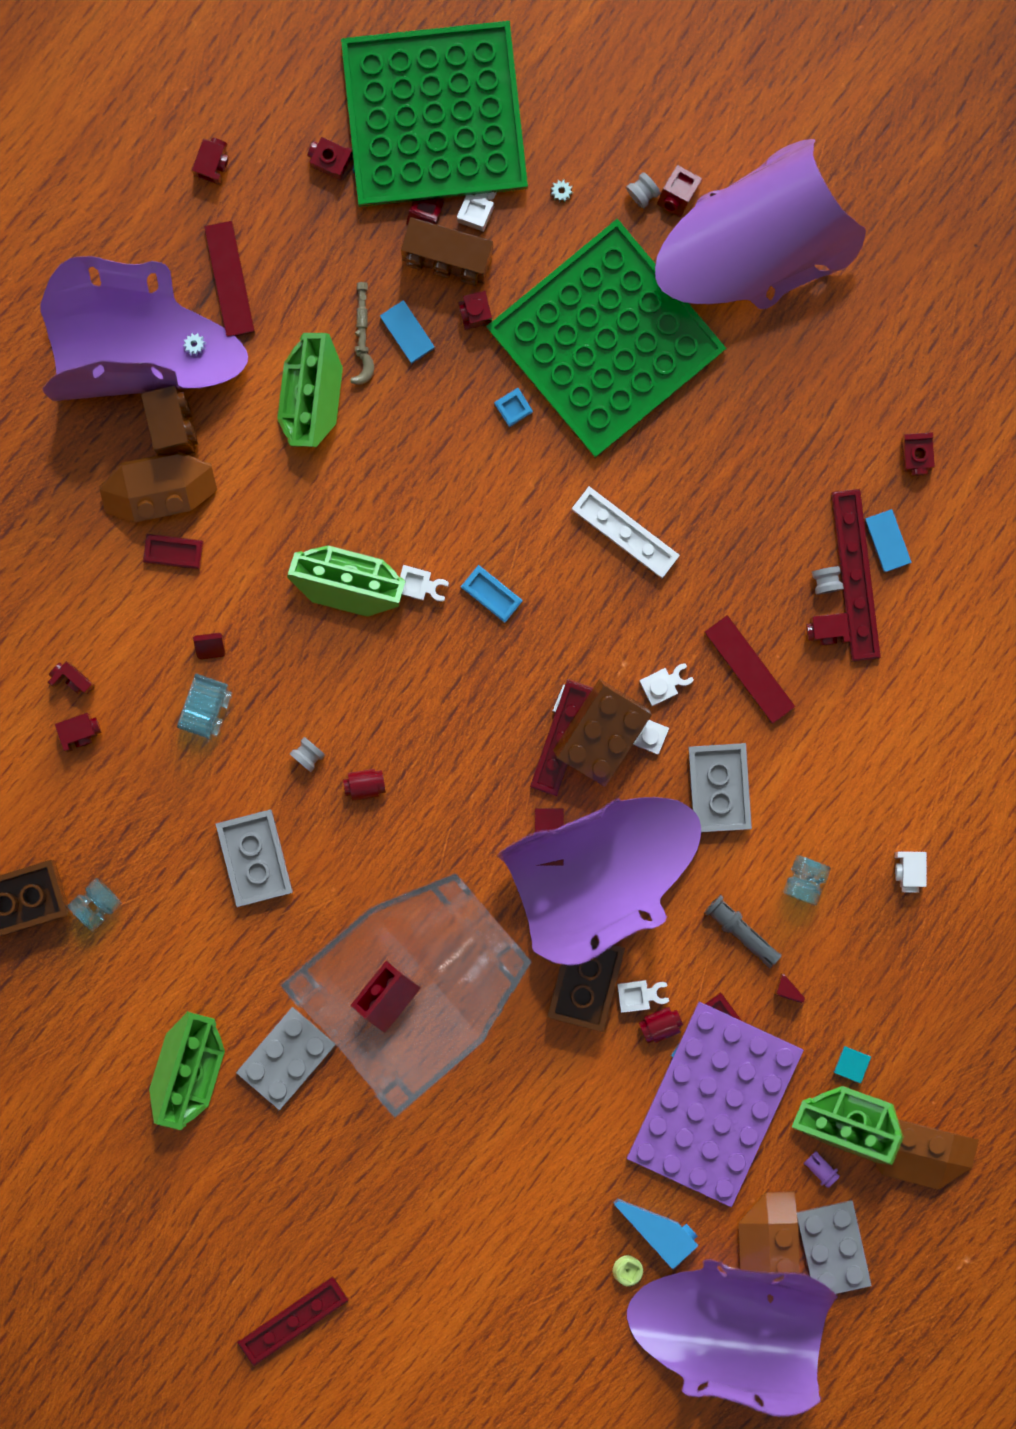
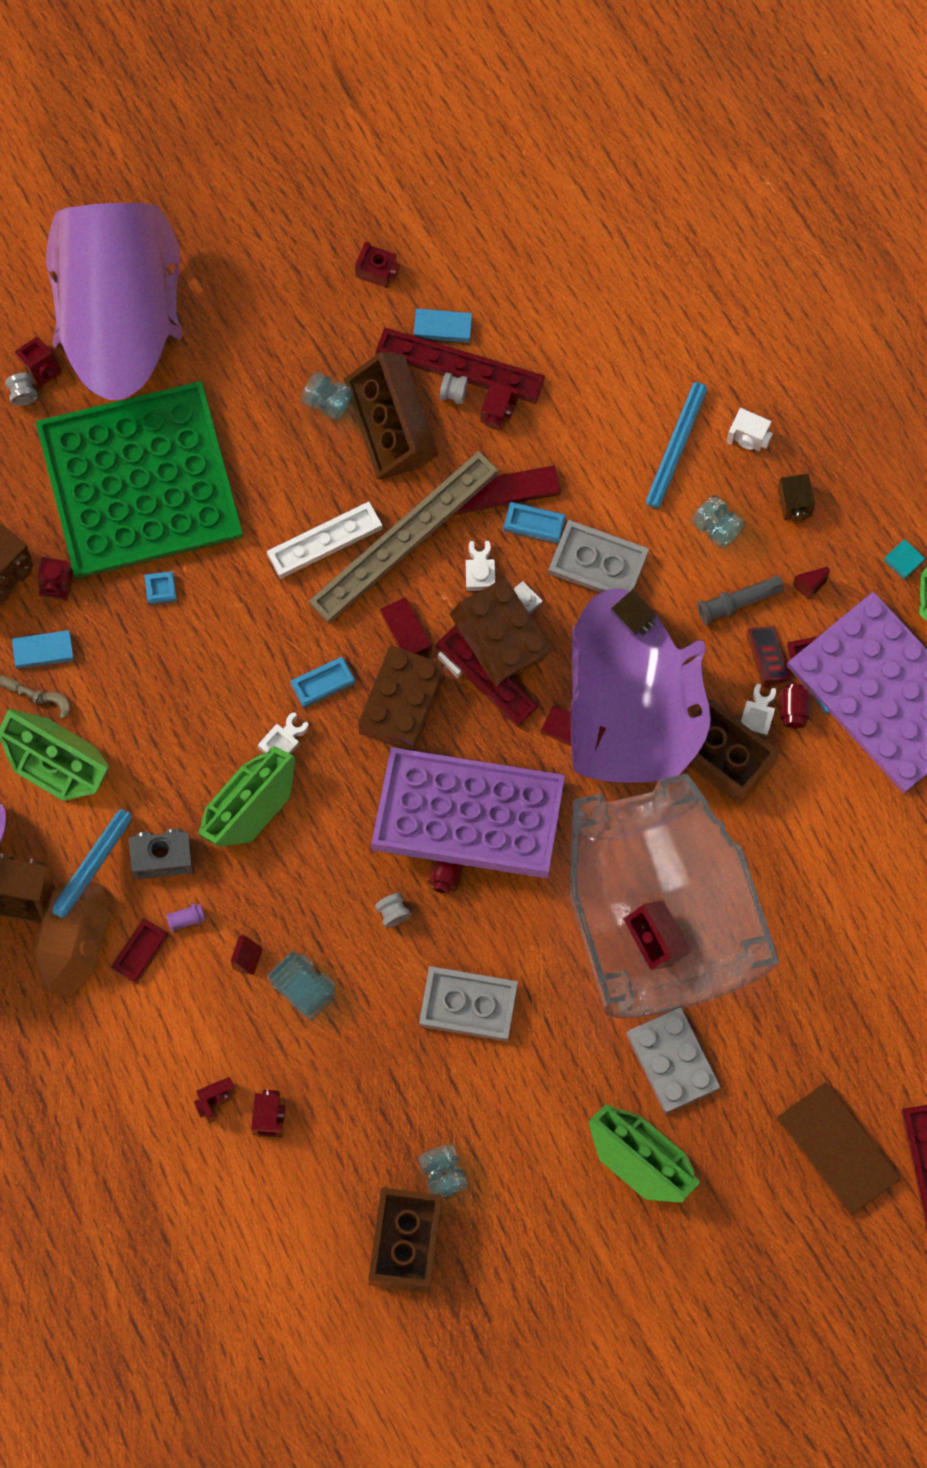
camera: 65 degrees left, 15 degrees down
(220, 577) = (186, 917): none -> medium lavender pin
(223, 474) = (91, 863): none -> dark azure axle
(253, 515) = (176, 862): none -> dark grey brick
(272, 1235) = (838, 1148): none -> reddish brown tile
(423, 780) = (468, 812): none -> medium lavender plate
(504, 672) = (401, 698): none -> reddish brown brick
(575, 644) = (405, 627): none -> dark red tile
(659, 603) = (403, 537): none -> dark tan plate
(676, 844) = (634, 614): none -> dark brown brick
(700, 980) = (767, 655): none -> slope
(732, 713) = (534, 522): none -> dark azure tile
(765, 469) = (329, 396): none -> clear light blue wheel
(773, 535) = (390, 415): none -> reddish brown slope
(864, 941) = (796, 497): none -> dark brown brick
(868, 808) = (676, 445): none -> dark azure axle

